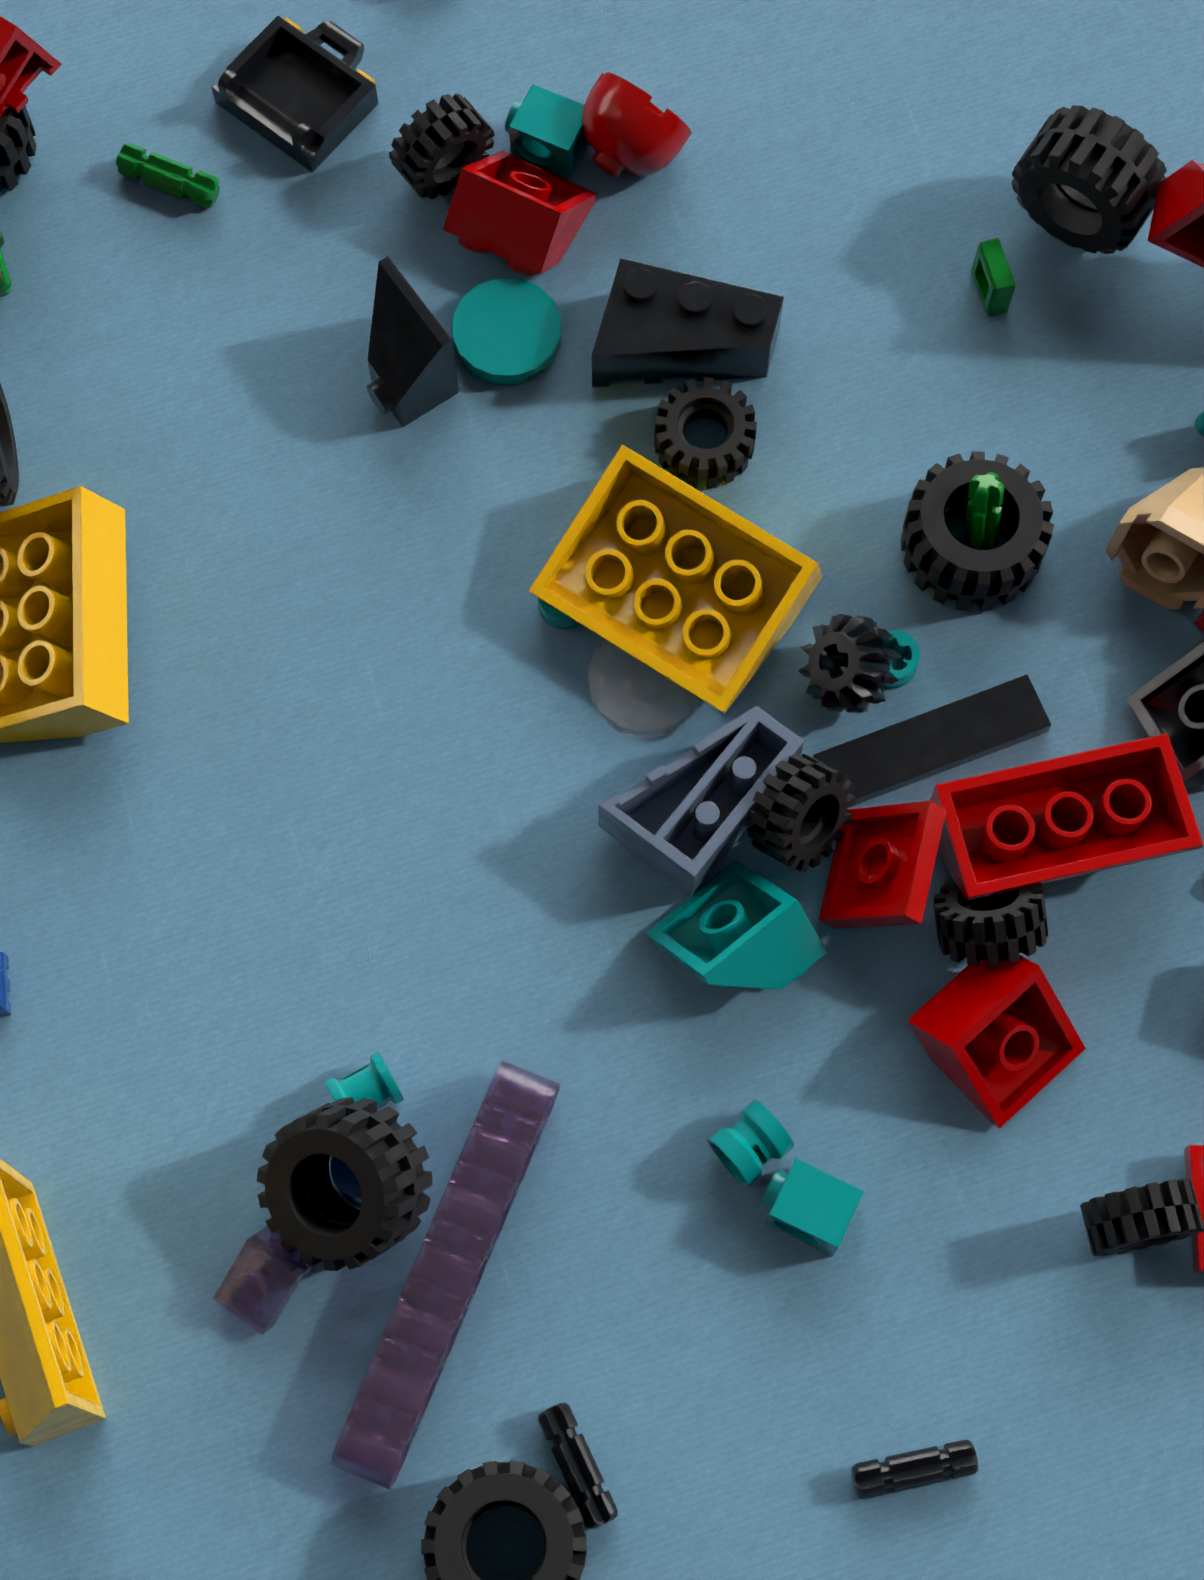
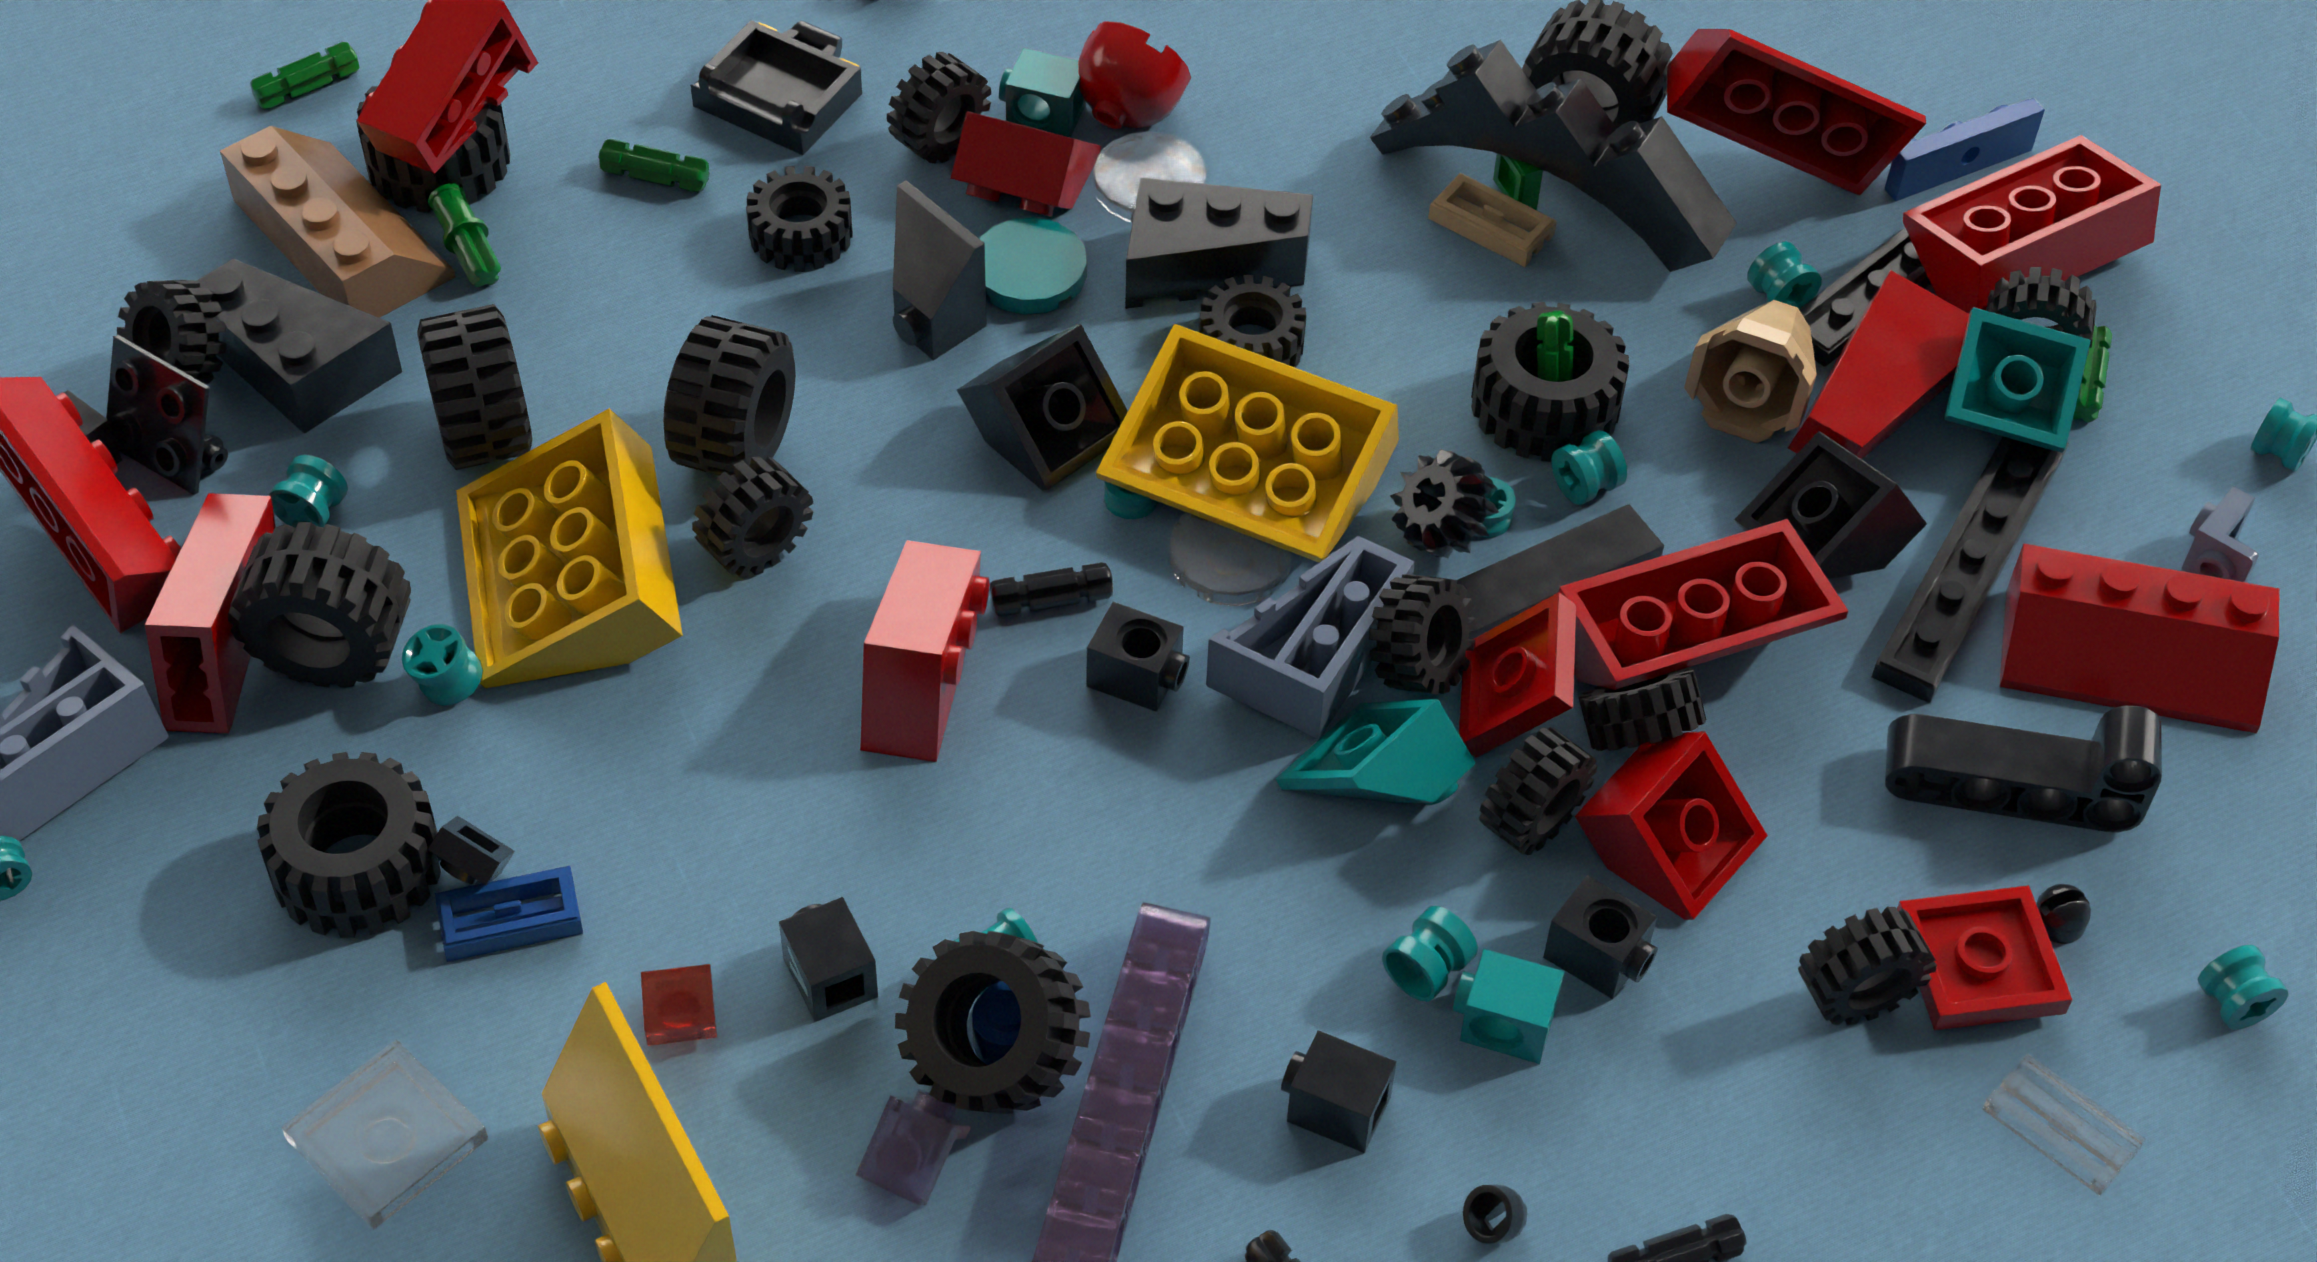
camera: 10 degrees left, 20 degrees down
(81, 1108) = (678, 1004): none -> clear red plate
(196, 477) = (728, 395): none -> black tyre
(204, 606) = (752, 516): none -> black tyre
(215, 1079) = (828, 958): none -> black brick
(288, 229) = (799, 241): none -> black tyre
(340, 761) = (919, 649): none -> red wedge
(472, 705) = (1051, 589): none -> black axle
(497, 505) = (1047, 407): none -> black slope
(532, 770) = (1136, 657): none -> black brick
(636, 227) = (1143, 156): none -> clear tile
(643, 1272) = (1338, 1090): none -> black brick
(749, 1419) = (1488, 1203): none -> black hinge
(877, 993) = (1537, 790): none -> black tyre
(903, 1120) = (1601, 913): none -> black brick
(974, 347) = (1488, 224): none -> tan tile
(997, 630) = (1589, 467): none -> teal wheel
(1041, 257) = (1563, 130): none -> black arch

